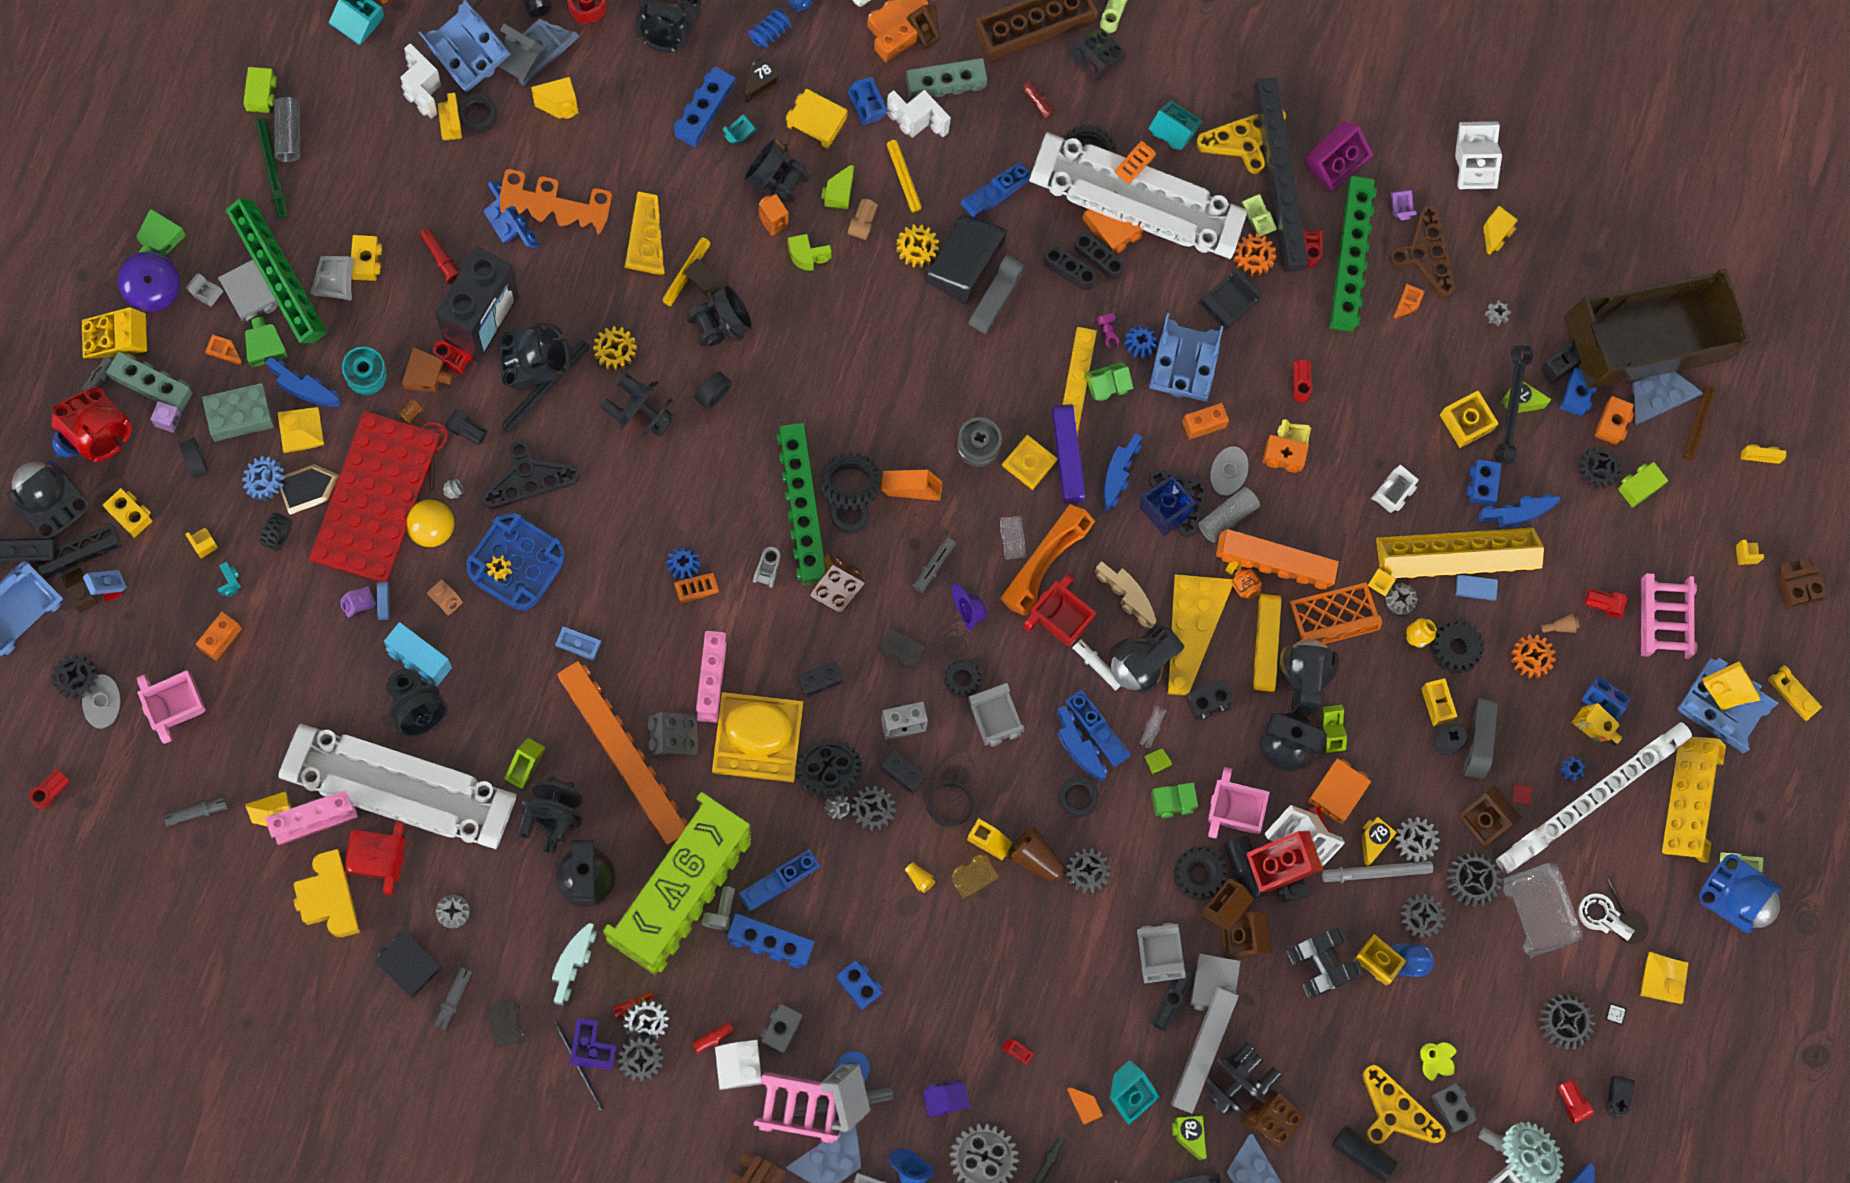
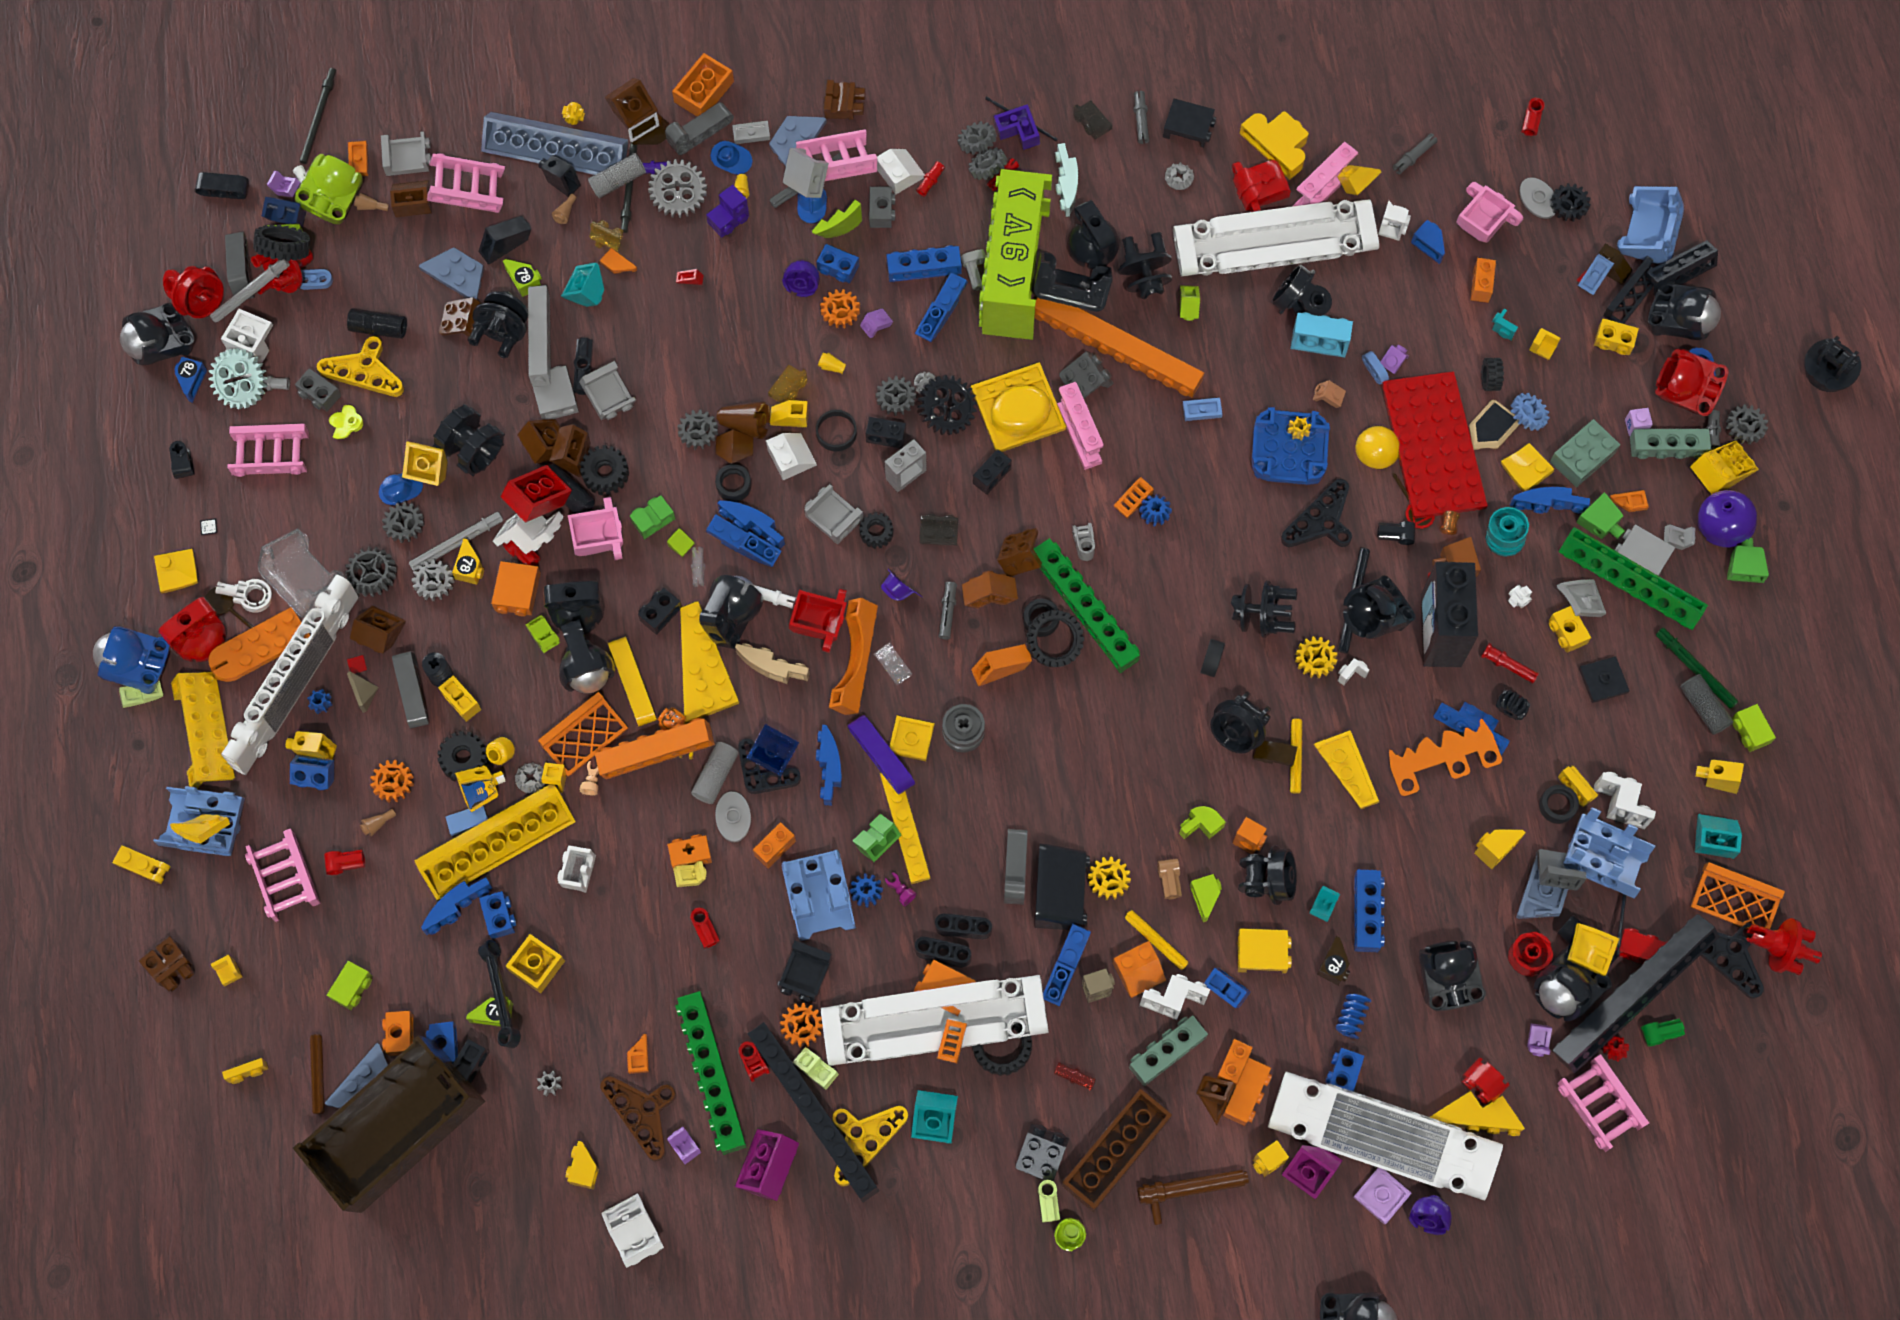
camera: 165 degrees right, 5 degrees down
(63, 372) = (1747, 424): none -> dark grey gear
(193, 457) = (1594, 398): black tyre -> none
(242, 706) = (1430, 241): none -> blue slope
(269, 739) = (1394, 222): none -> white window
(318, 61) = (1722, 775): none -> yellow torso
(362, 200) = (1604, 679): none -> black plate
(390, 308) = (1520, 596): none -> white gear
(453, 489) = (1375, 479): light grey plate -> none
(463, 213) = (1513, 705): none -> black gear
(593, 320) = (1355, 666): none -> white bracket
(632, 831) = (1072, 288): none -> black windscreen
(841, 1024) = (840, 222): none -> lime slope
(851, 900) = (875, 321): none -> medium lavender bracket
(869, 940) = (840, 308): none -> orange gear
(886, 558) = (989, 588): none -> dark orange brick
(903, 986) = (801, 278): none -> dark purple cylinder
(916, 1127) = (742, 185): none -> yellow cone
(933, 158) = (1139, 969): none -> orange slope
(979, 155) = (1098, 985): none -> dark tan brick
(1007, 798) = (790, 454): none -> white slope
(1062, 833) = (734, 446): none -> reddish brown slope
(1078, 1134) = (604, 236): none -> clear yellow hips
(1349, 560) = (590, 786): none -> light nougat piece
(1454, 606) = (478, 786): none -> torso
(1512, 1078) = (268, 432): none -> bright pink fence
(1527, 761) = (363, 691): none -> dark tan slope
(1570, 1028) = (249, 487): dark grey gear -> none
(1577, 1107) = (215, 437): red piece -> none
(1595, 459) = (392, 989): black gear -> none
(1611, 854) = (254, 647): none -> orange plate
(1661, 902) = (199, 636): none -> red piece

